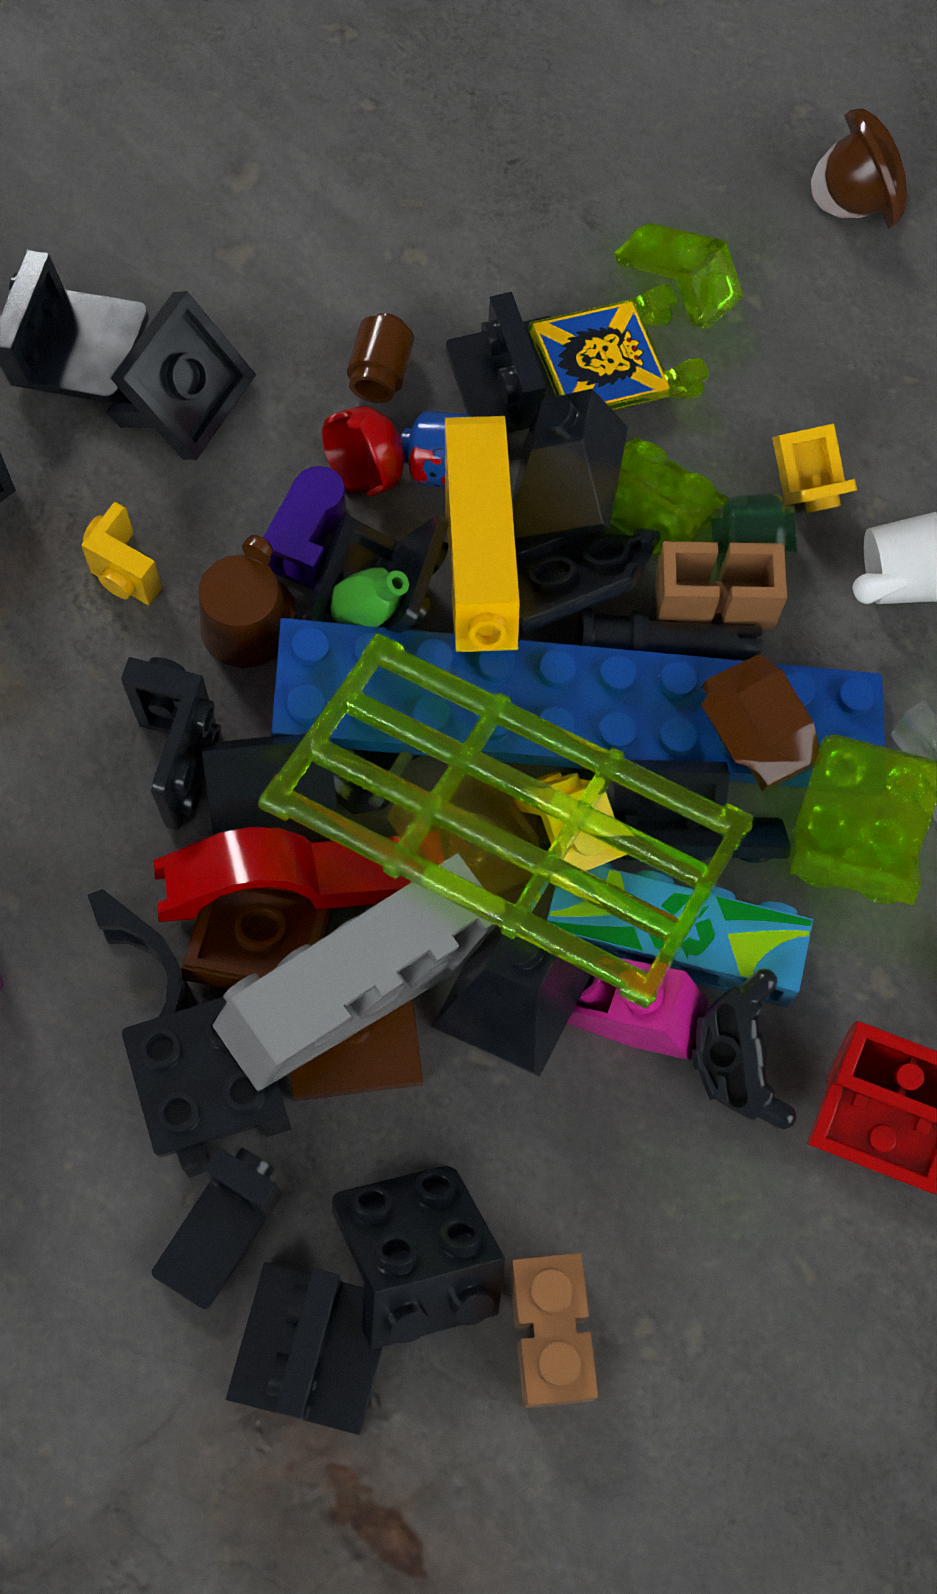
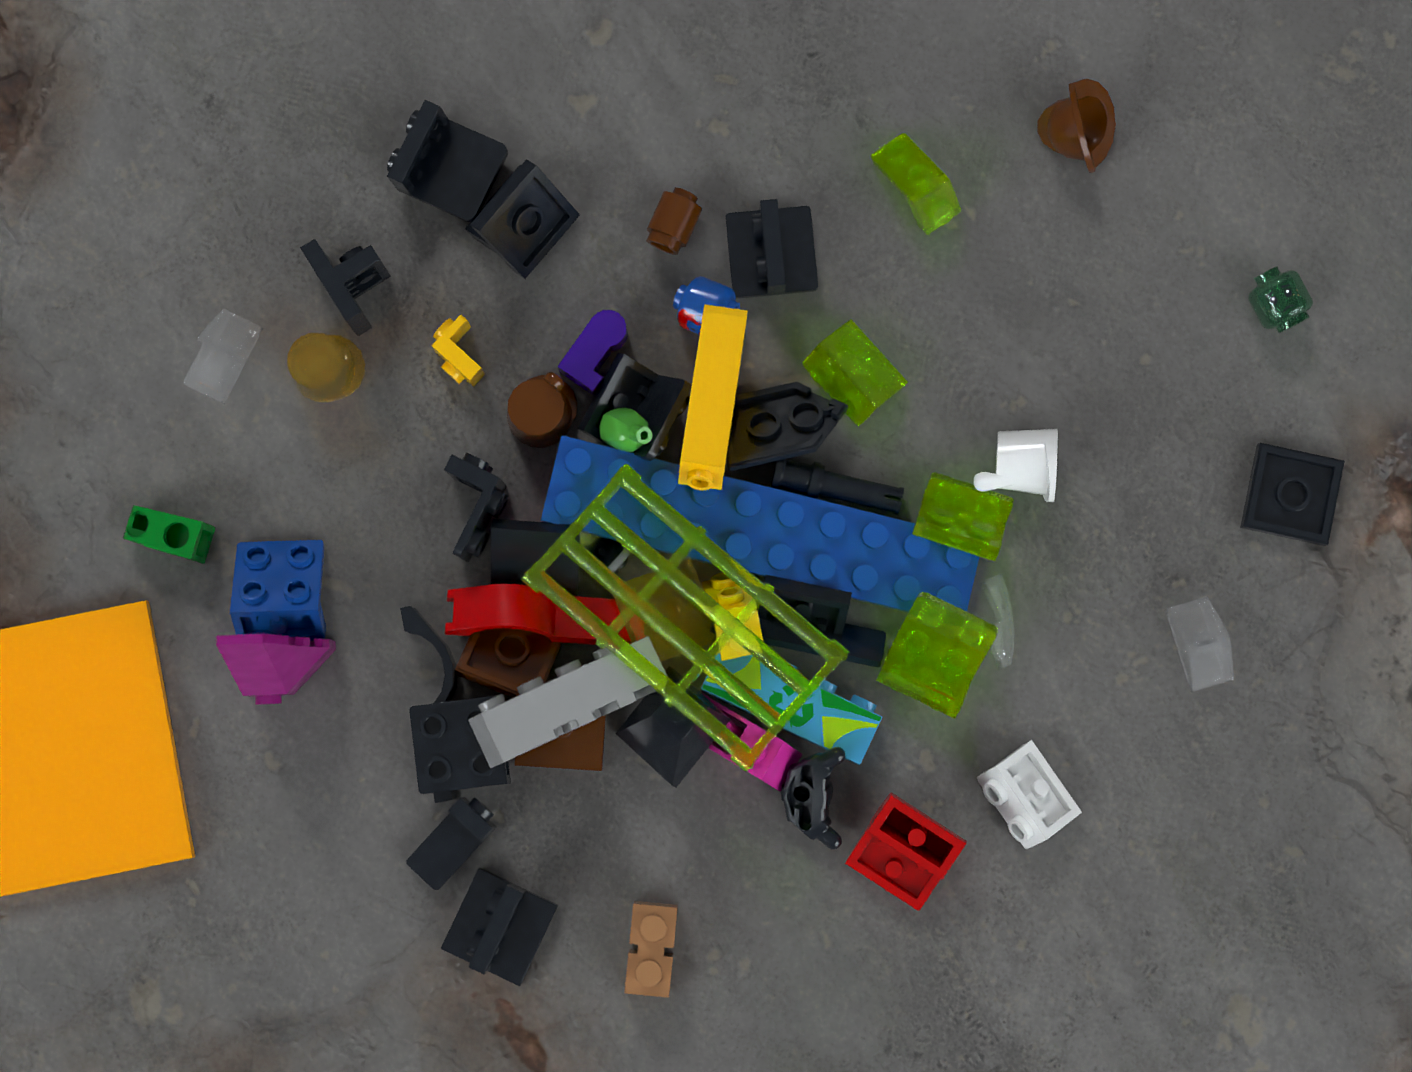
camera: 15 degrees right, 15 degrees up
(363, 449) = (647, 299): red hair -> none
(420, 1255) = (577, 883): black bracket -> none
(568, 468) = (789, 350): black slope -> none
(614, 353) = (842, 250): flag -> none
(748, 588) = (898, 463): medium nougat piece -> none
(756, 520) = (918, 415): clear green head -> none
(761, 721) = (877, 570): reddish brown slope -> none
(811, 468) = (974, 372): yellow bracket -> none
(848, 641) = (962, 516): none -> clear neon green bracket

